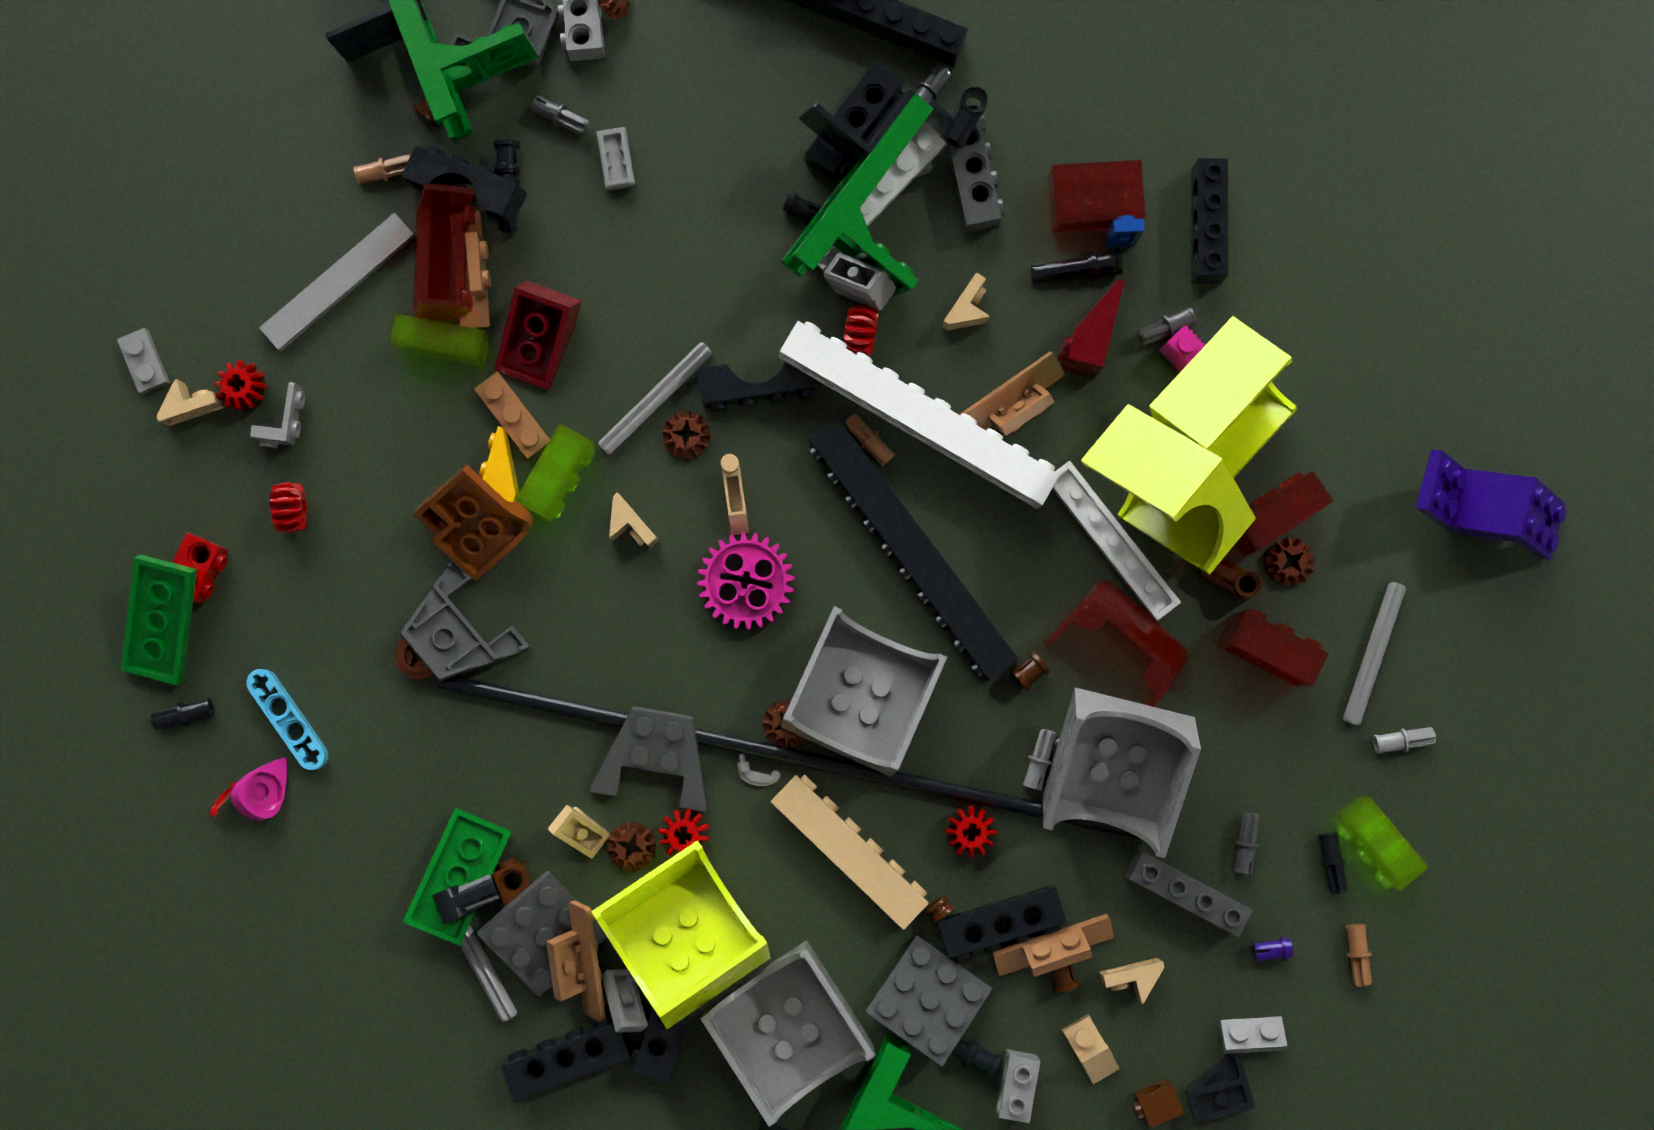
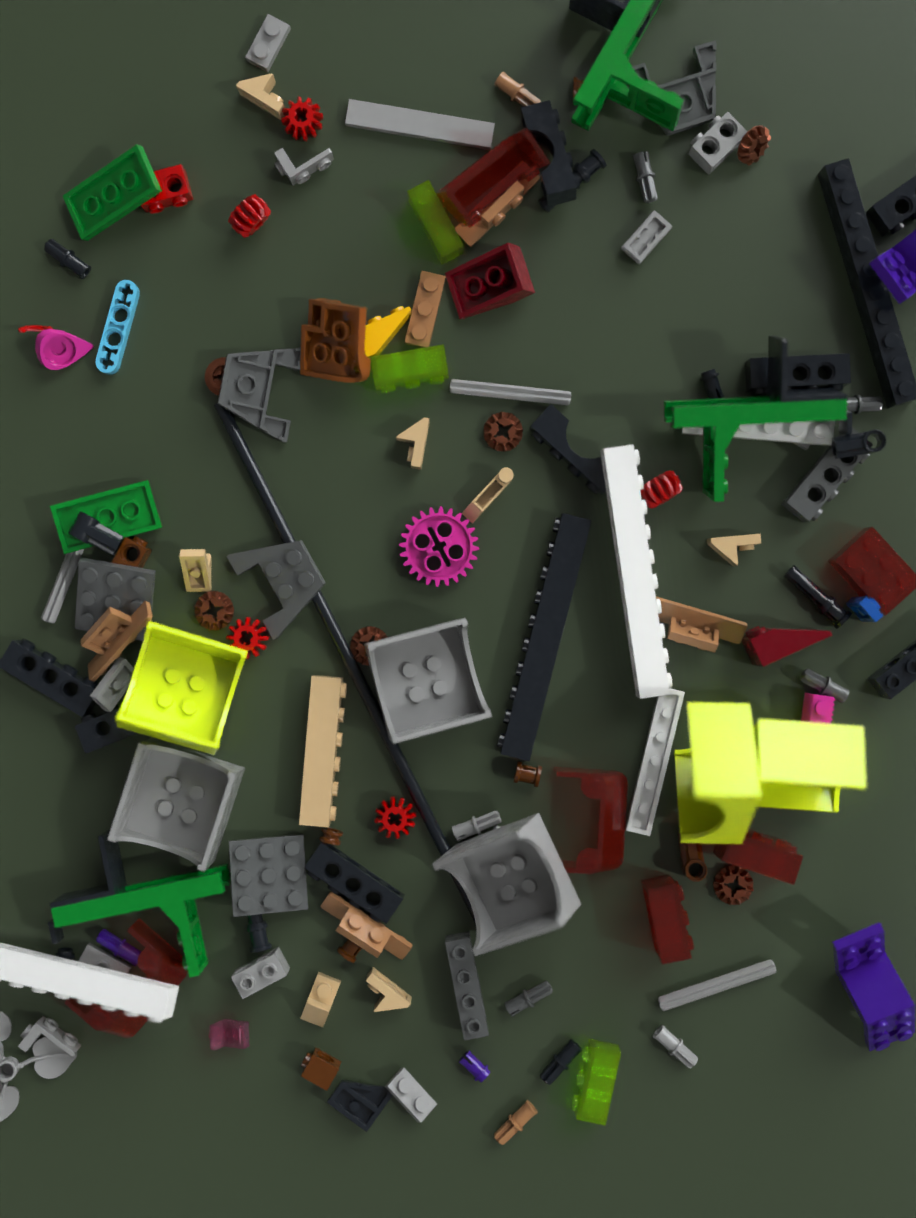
camera: 50 degrees right, 5 degrees up
(754, 777) = (319, 652): light grey piece -> none
(859, 281) = (692, 462): light grey brick -> none
(869, 439) = (594, 552): medium nougat axle -> none

